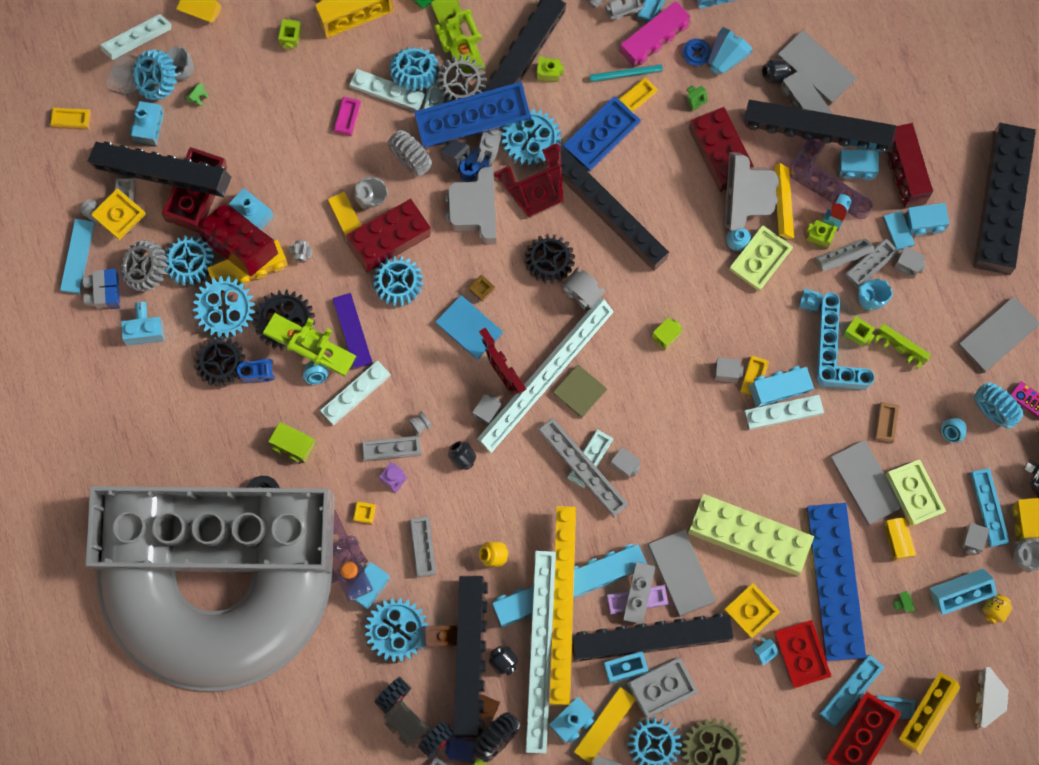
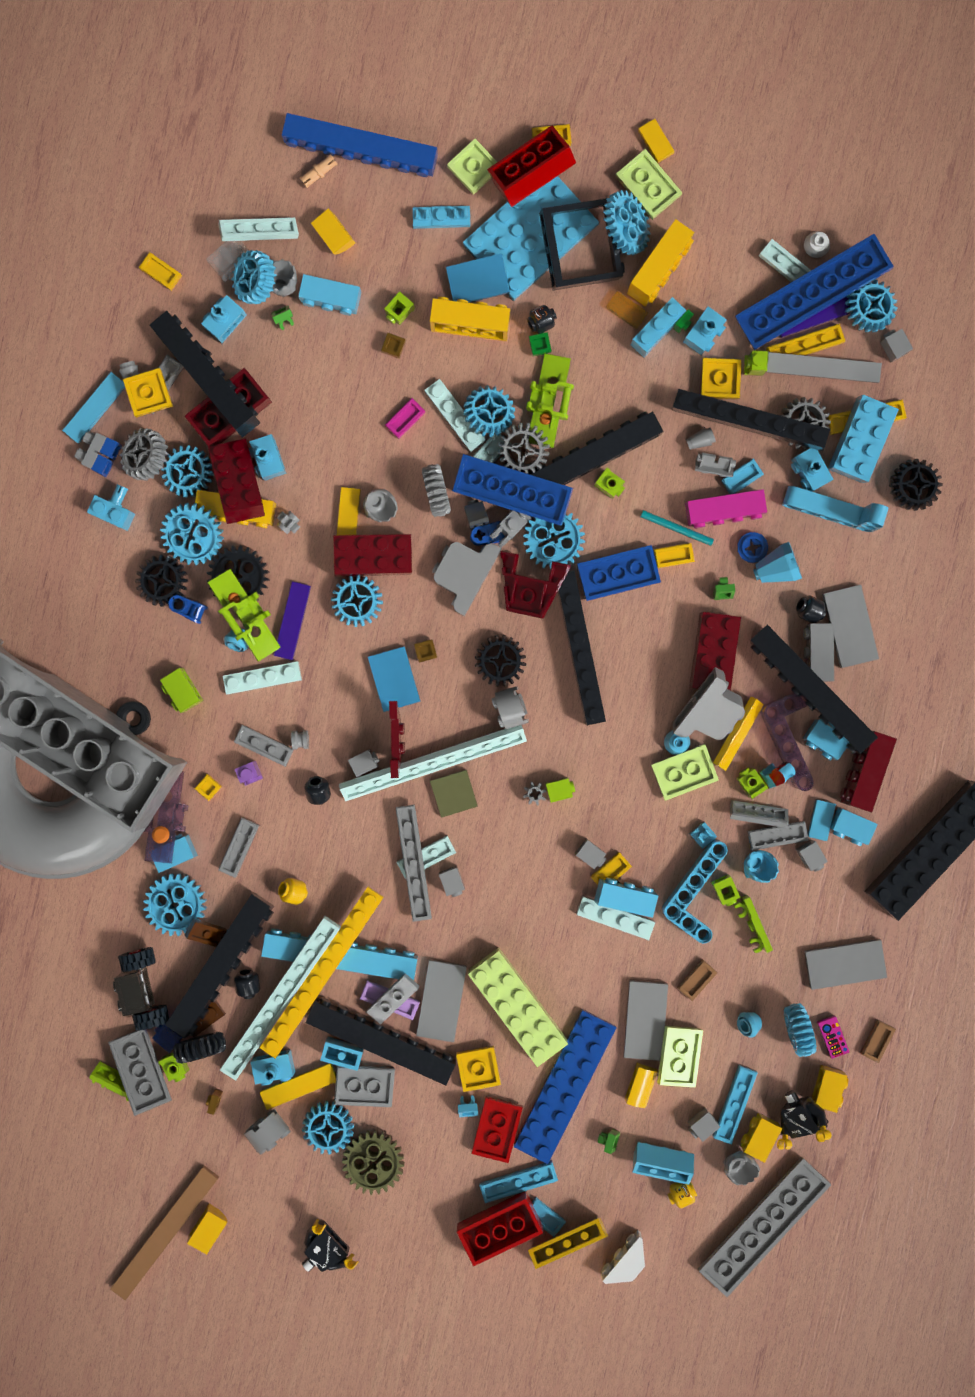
camera: 35 degrees right, 15 degrees up
(225, 55) = (329, 295): none -> medium azure brick
(302, 65) = (393, 345): none -> pearl gold plate
(650, 353) = (529, 790): none -> light grey gear

